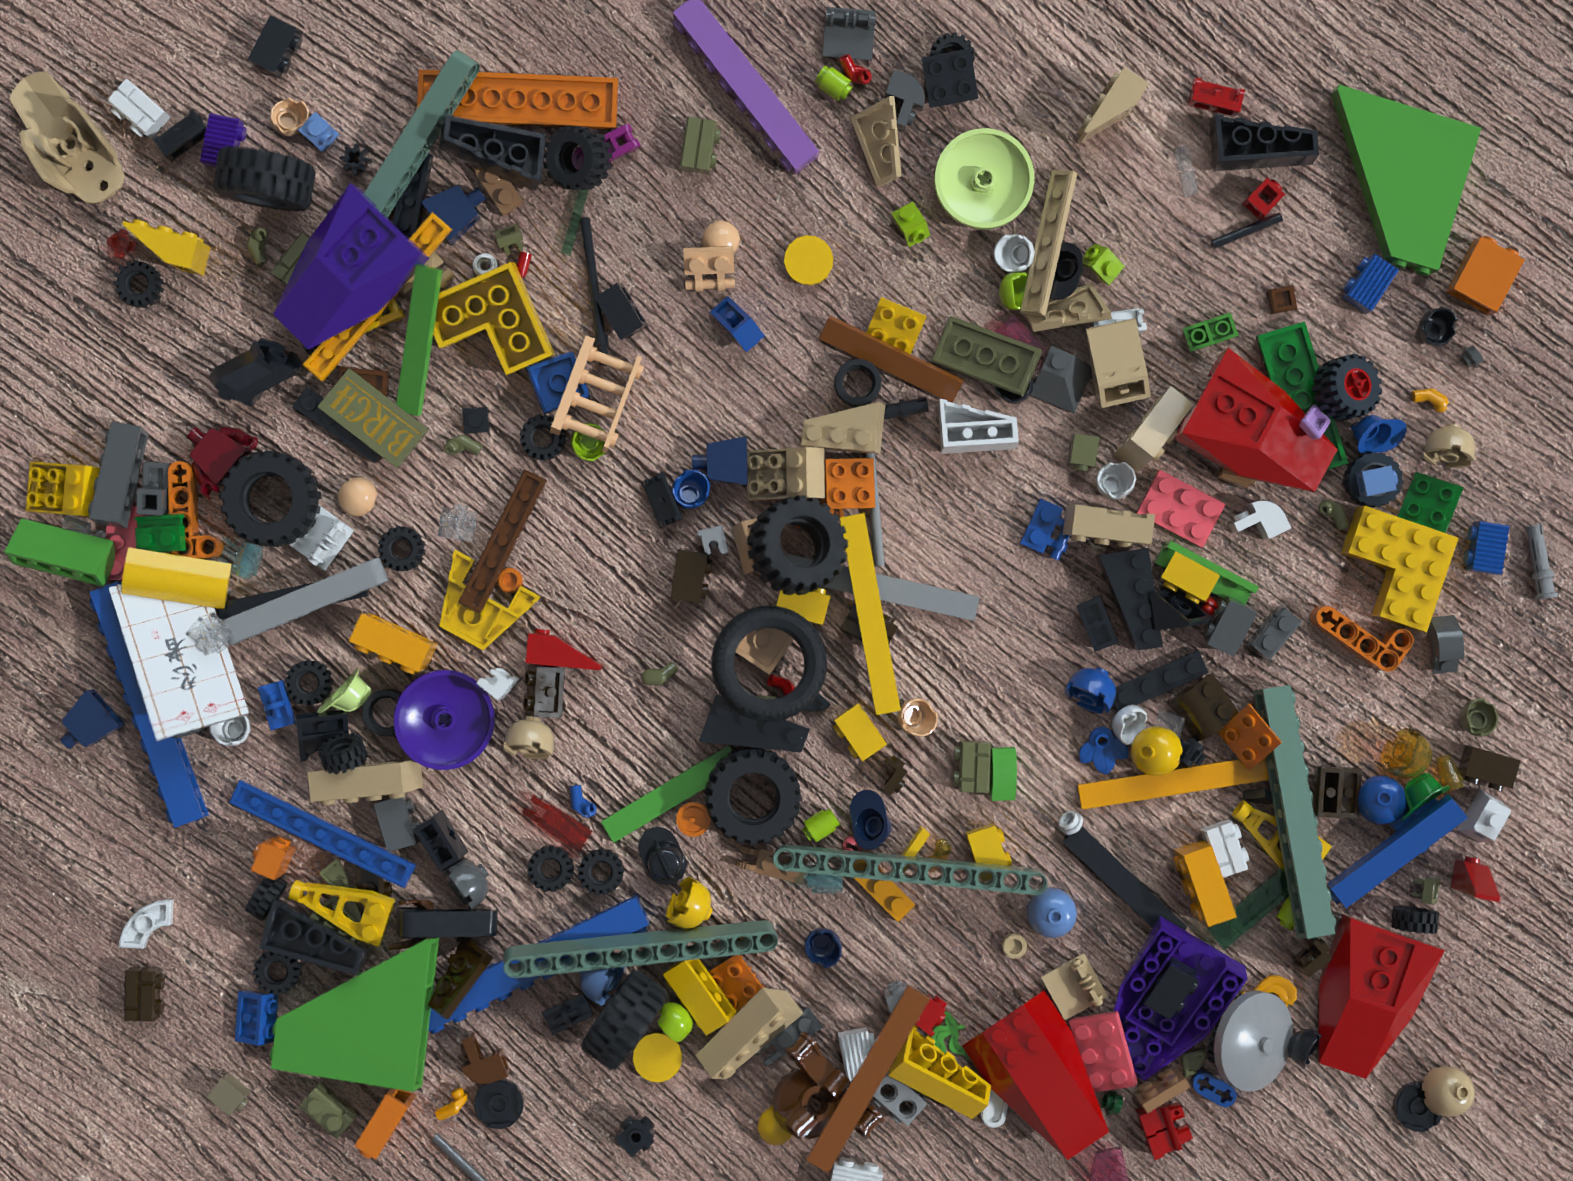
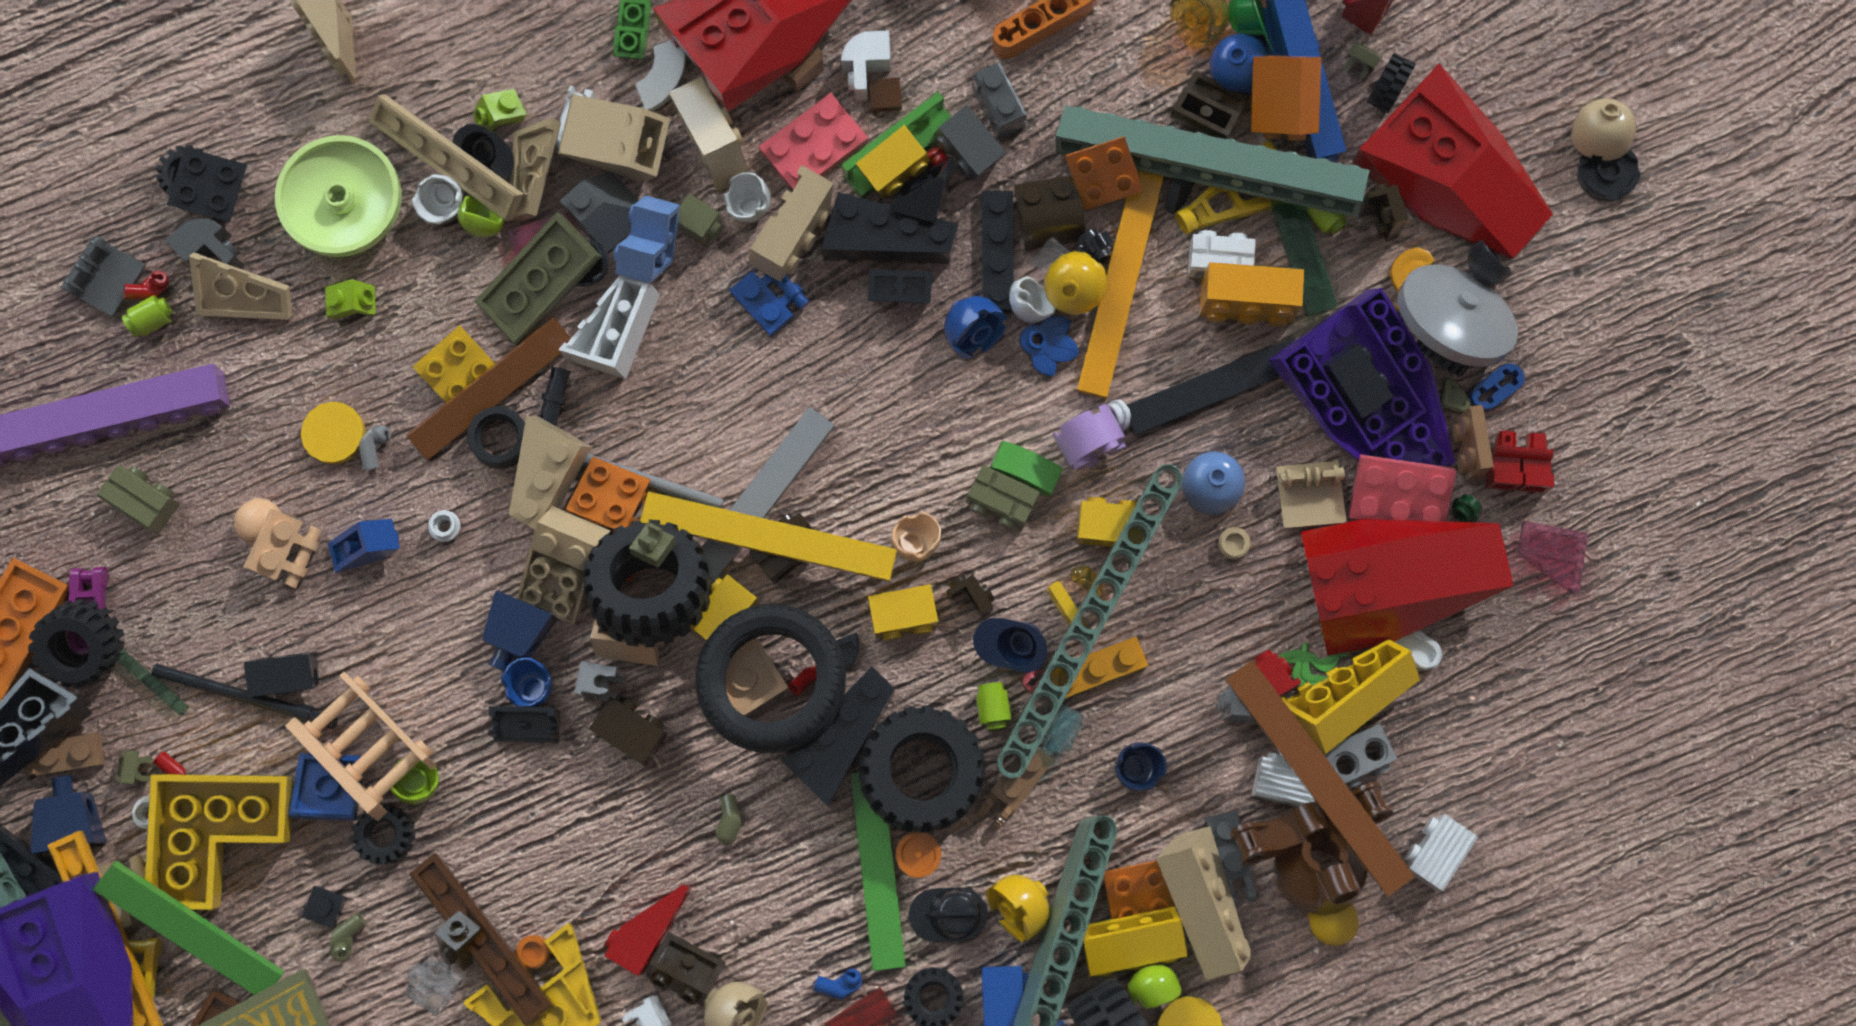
camera: 65 degrees left, 10 degrees down
(494, 525) = (454, 938): none -> dark brown bracket
(776, 366) = (436, 521): none -> white plate
(811, 291) = (370, 444): none -> light grey arm
(824, 539) = (652, 545): none -> olive tile
(1045, 811) = (1089, 438): none -> lavender brick
(1050, 426) = (651, 241): none -> medium blue brick
(1182, 373) = (663, 77): none -> white tile
(1242, 545) = (885, 94): none -> reddish brown tile
(1368, 847) = (1286, 96): none -> orange brick

